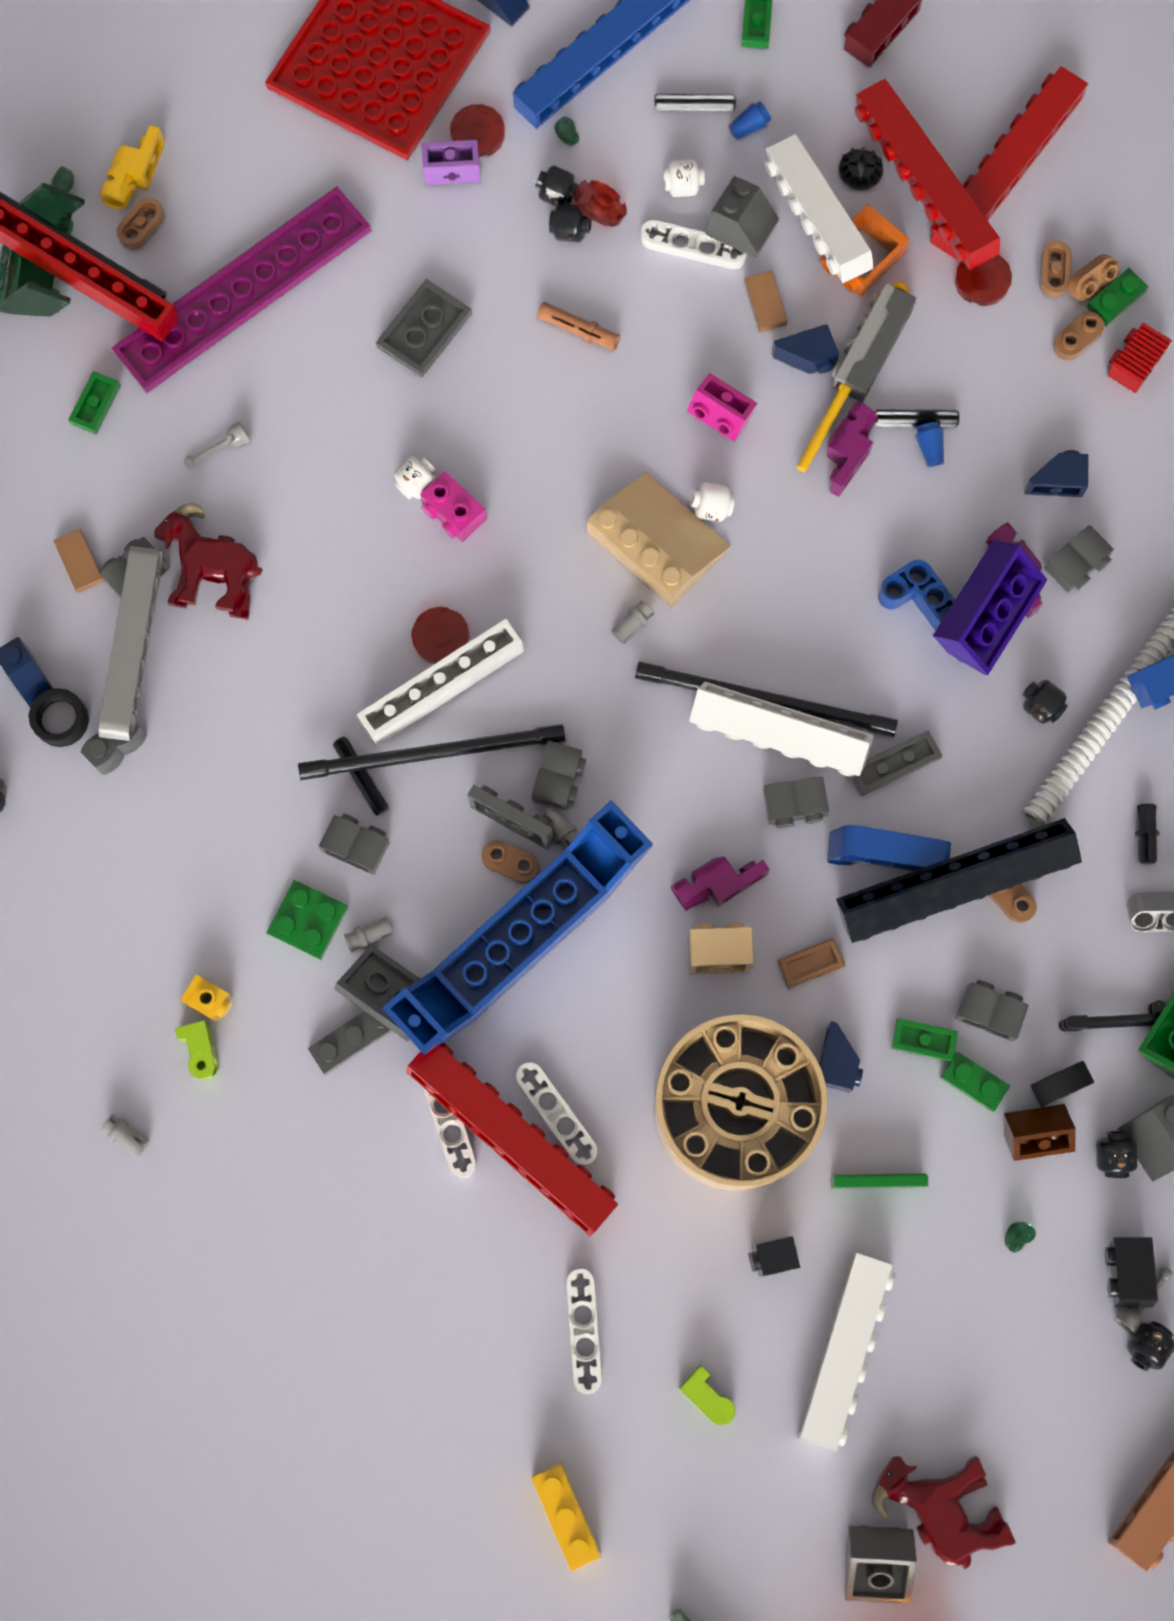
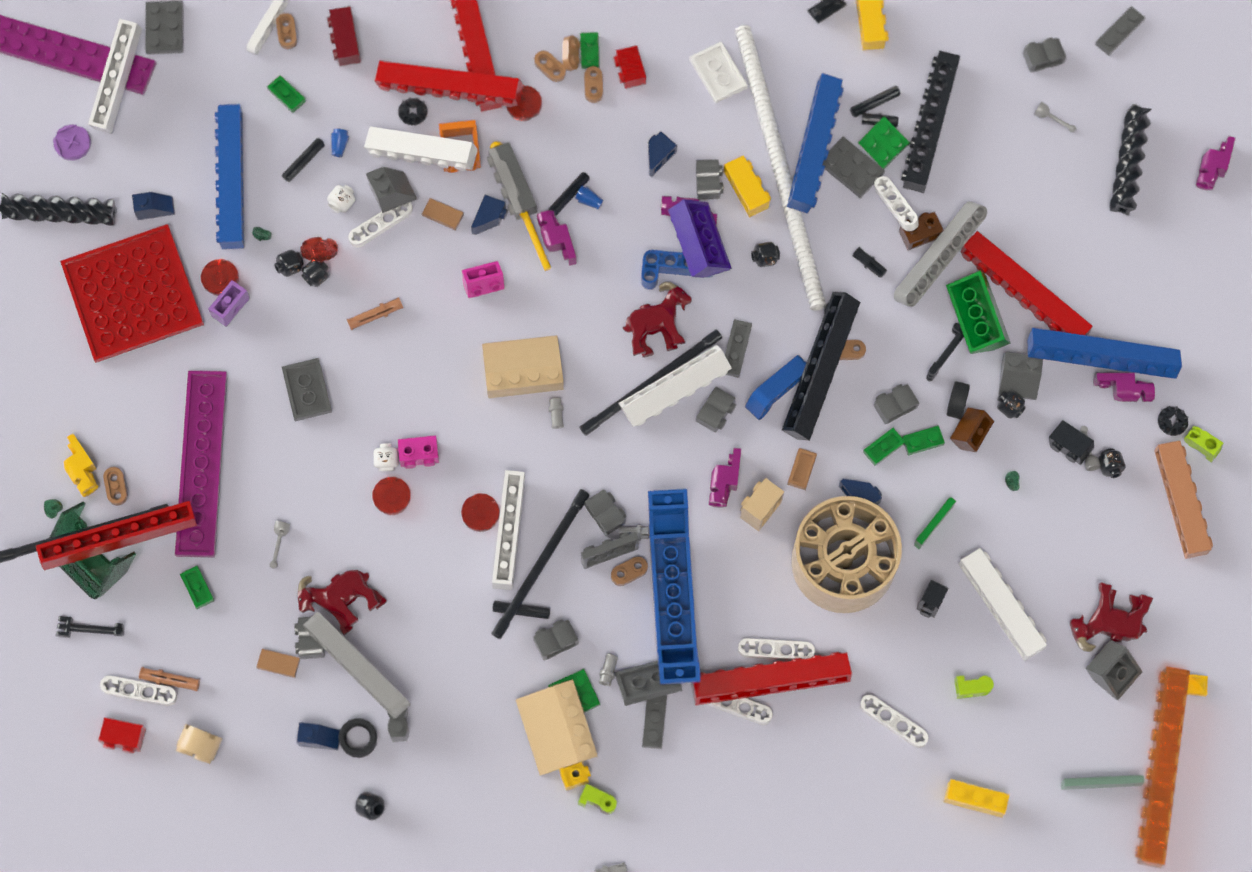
camera: 55 degrees left, 5 degrees down
(247, 932) = (556, 727): none -> tan slope
(377, 521) = (391, 495): none -> clear red tile
(712, 501) = (527, 324): white head -> none
(849, 642) = (656, 319): none -> dark red animal
(1112, 610) = (747, 186): none -> yellow brick

